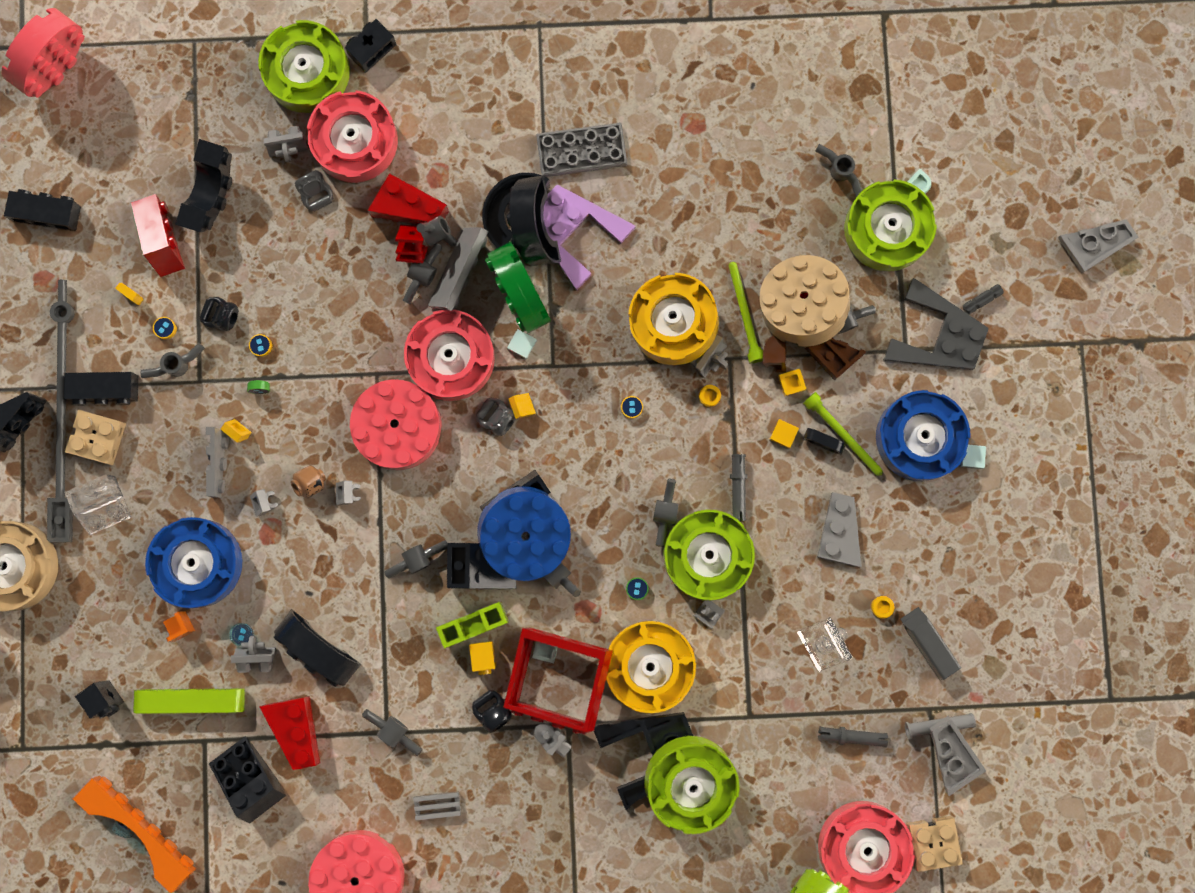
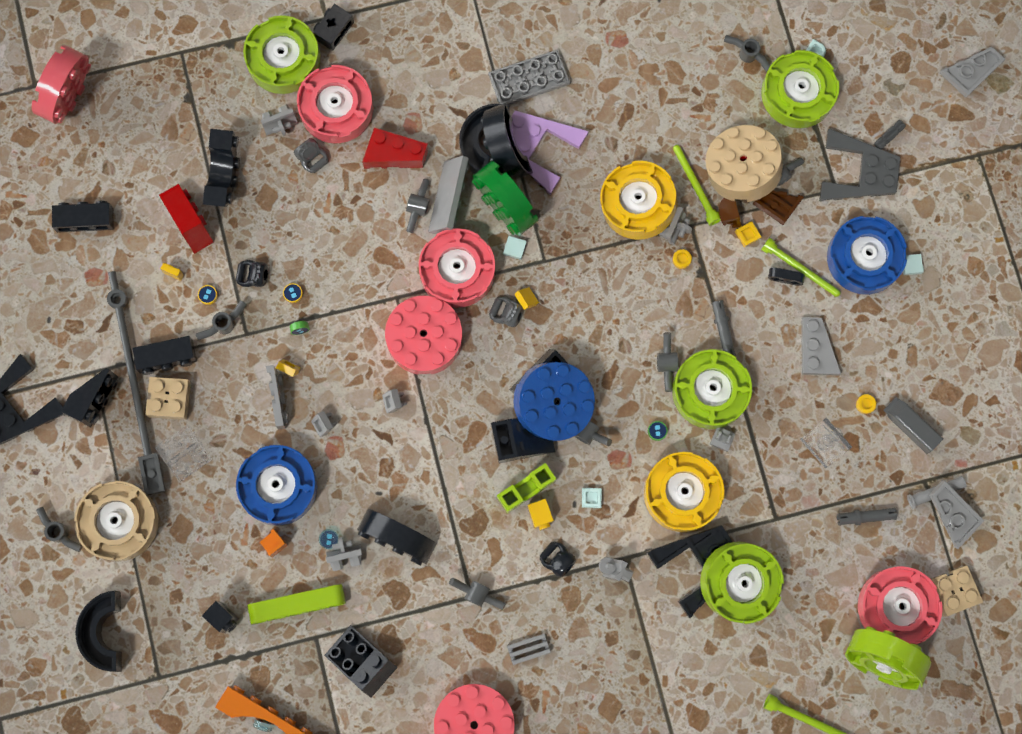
camera: 15 degrees left, 5 degrees down
(294, 730) = (393, 609): red wedge -> none
(308, 481) = (359, 398): medium nougat head -> none
(406, 250) = (403, 189): red piece -> none
(416, 559) = (465, 444): dark grey piece -> none
(436, 231) = (424, 167): dark grey piece -> none
(539, 714) = (574, 515): red window -> none
(631, 407) = (618, 281): dark blue tile -> none
(784, 433) = (751, 277): yellow tile -> none

